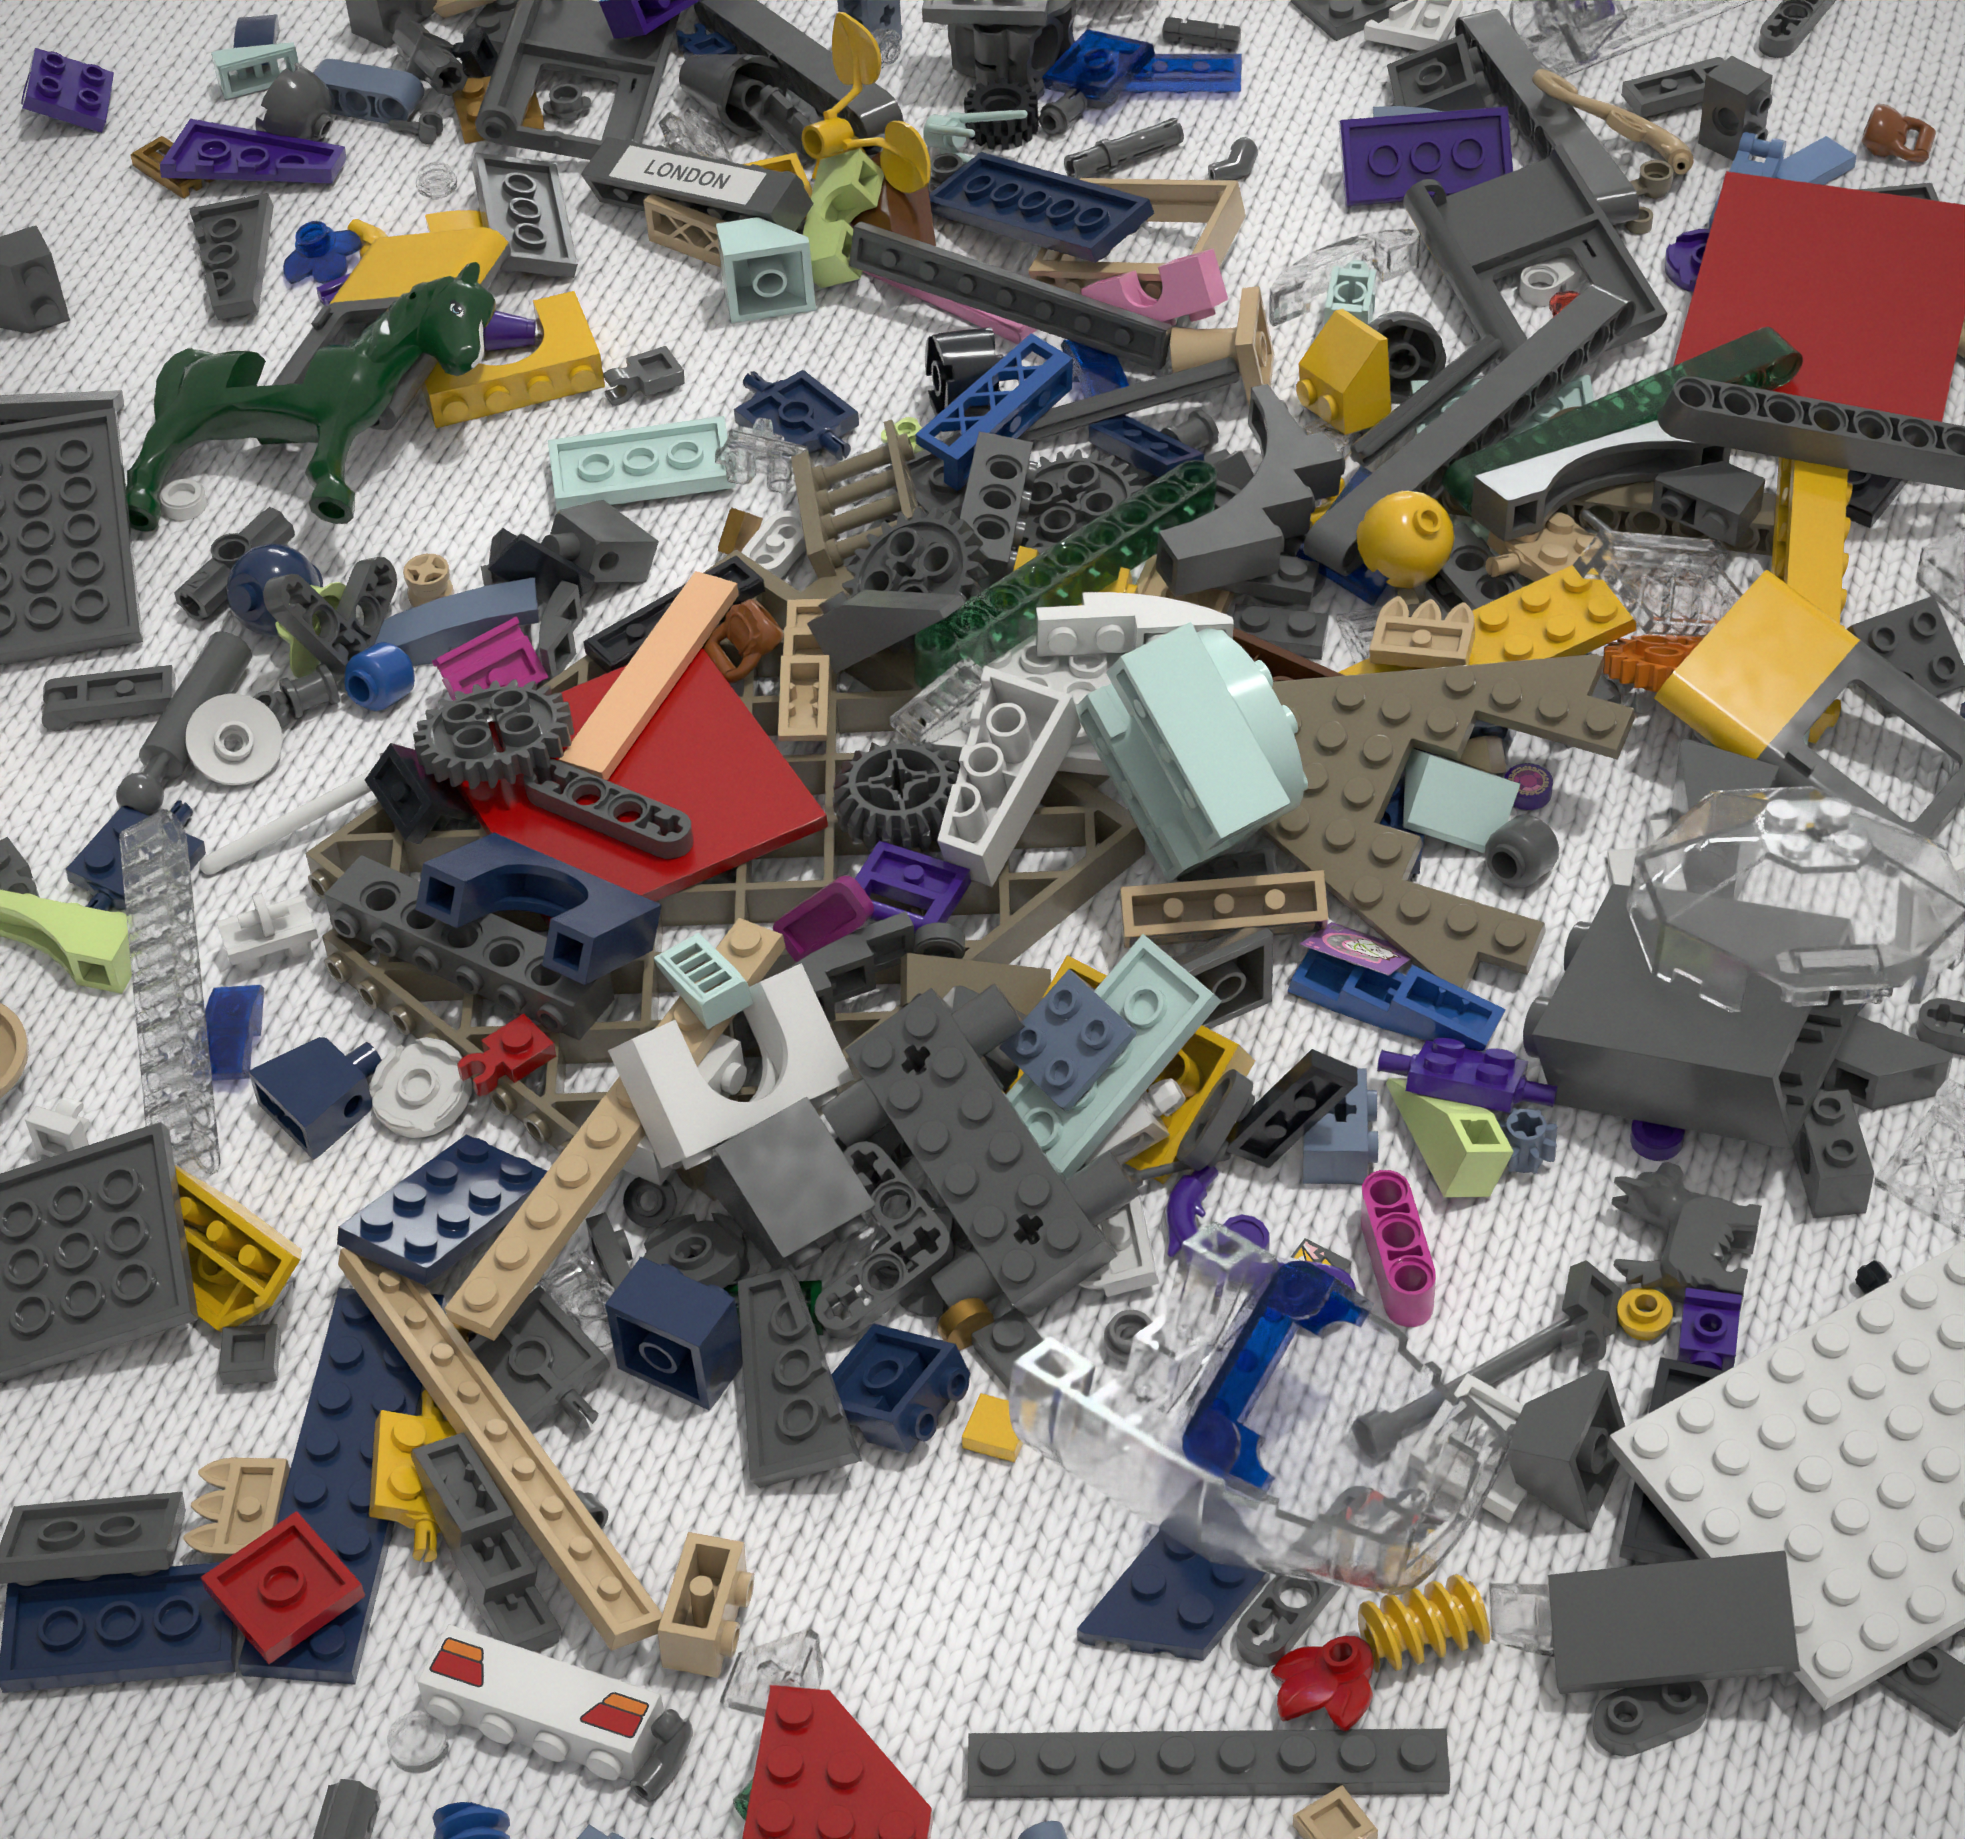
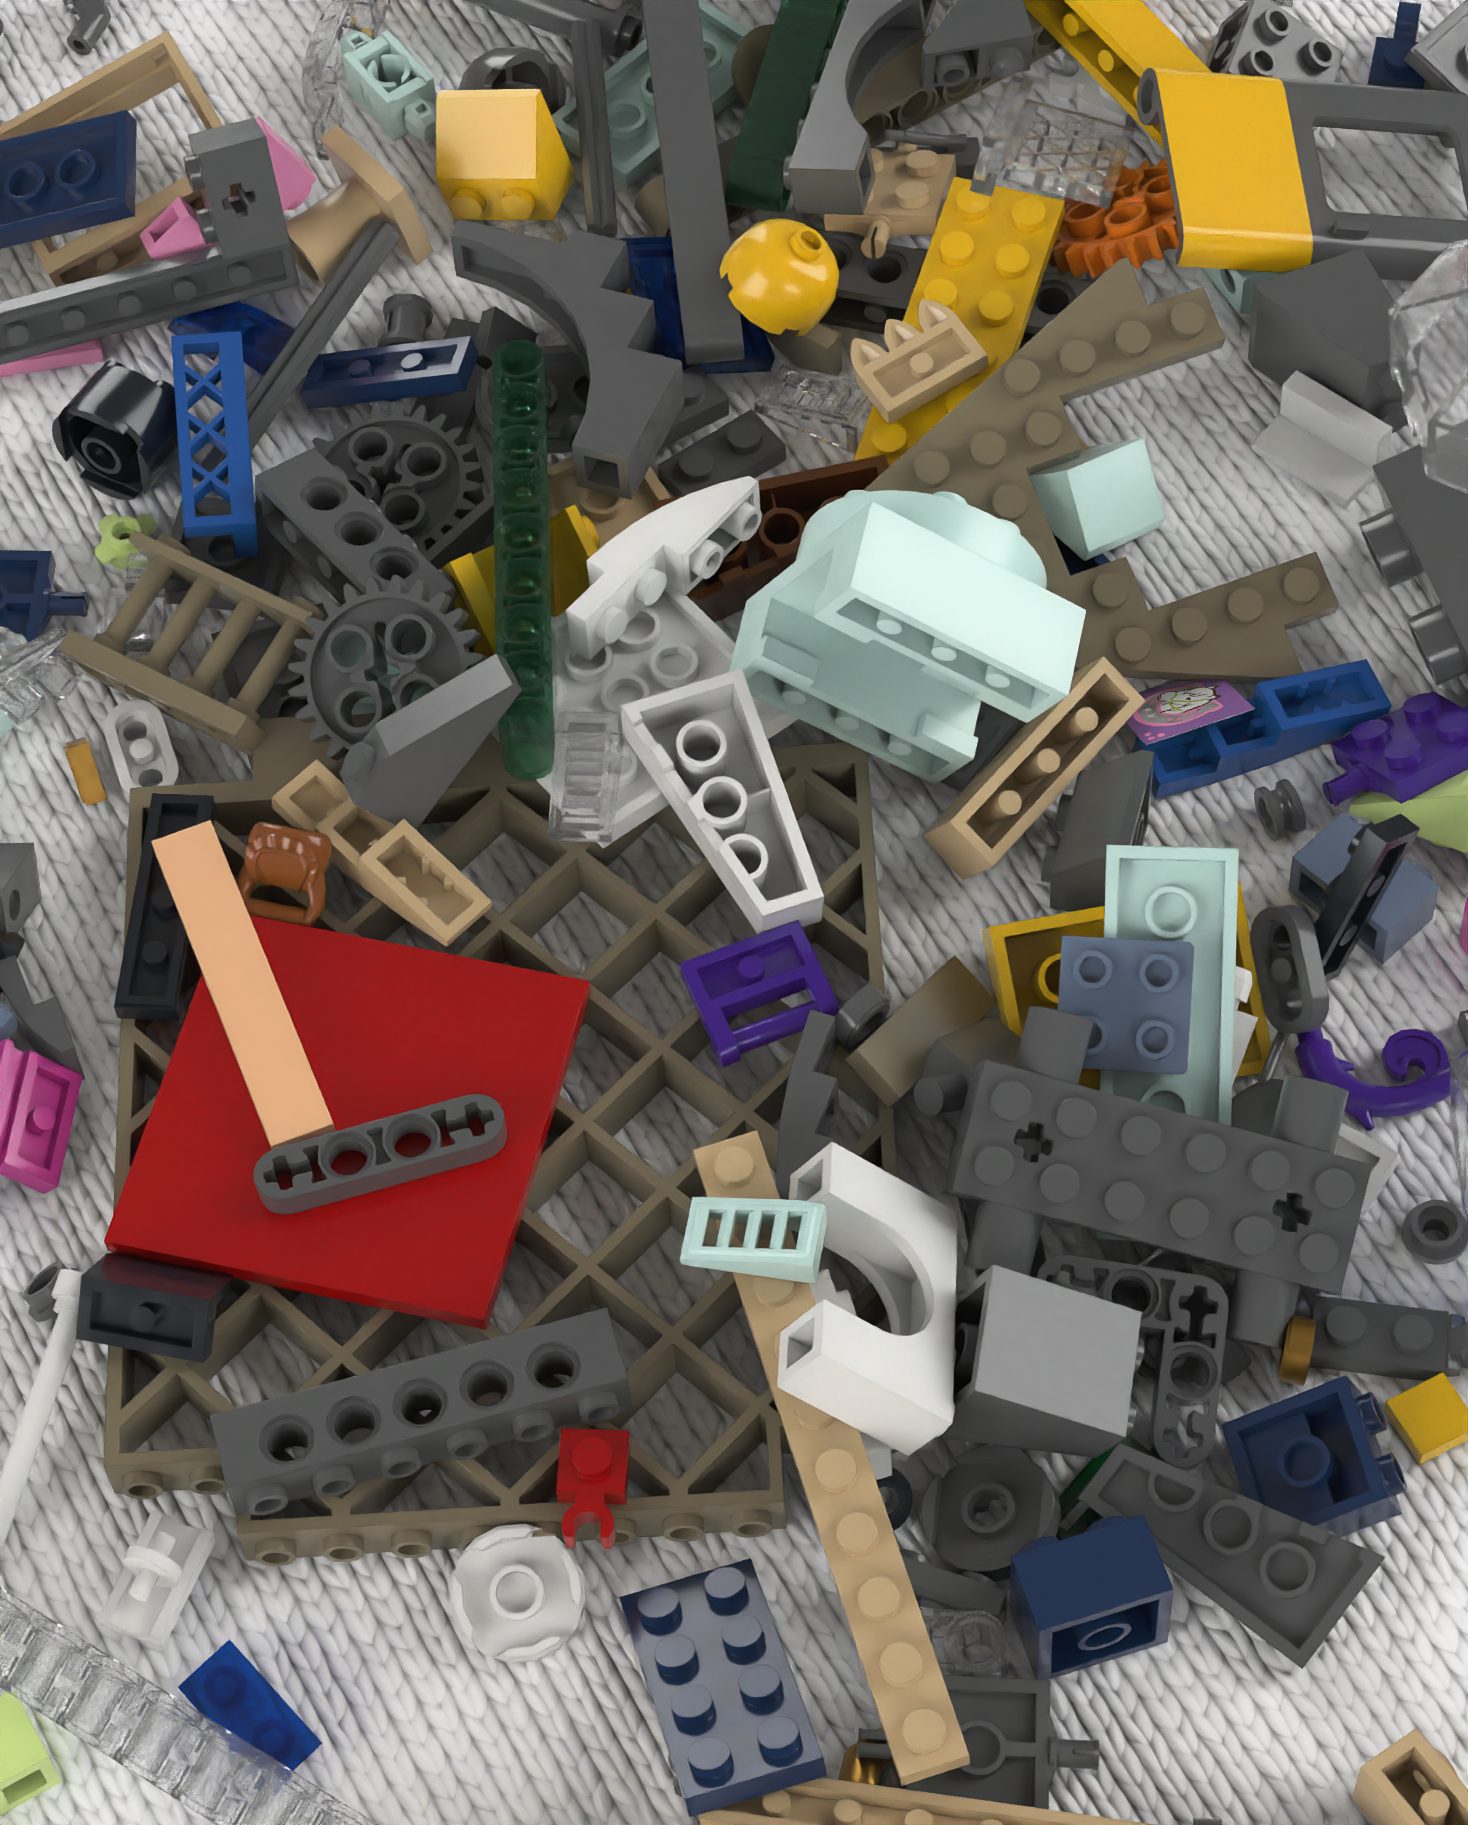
camera: 45 degrees left, 10 degrees up
(316, 1091) = (421, 1692): dark blue torso -> none
(460, 744) = (176, 1176): dark grey gear -> none
(593, 920) = (540, 1262): dark blue arch -> none
(824, 917) = (745, 1081): magenta piece -> none
(869, 791) = (640, 924): dark grey gear -> none
(1164, 262) = (253, 217): none -> dark grey brick
(1345, 1045) = (1280, 809): none -> dark grey bush
(1521, 851) = (1199, 501): dark grey head -> none
(1534, 788) = (1116, 426): tile -> none

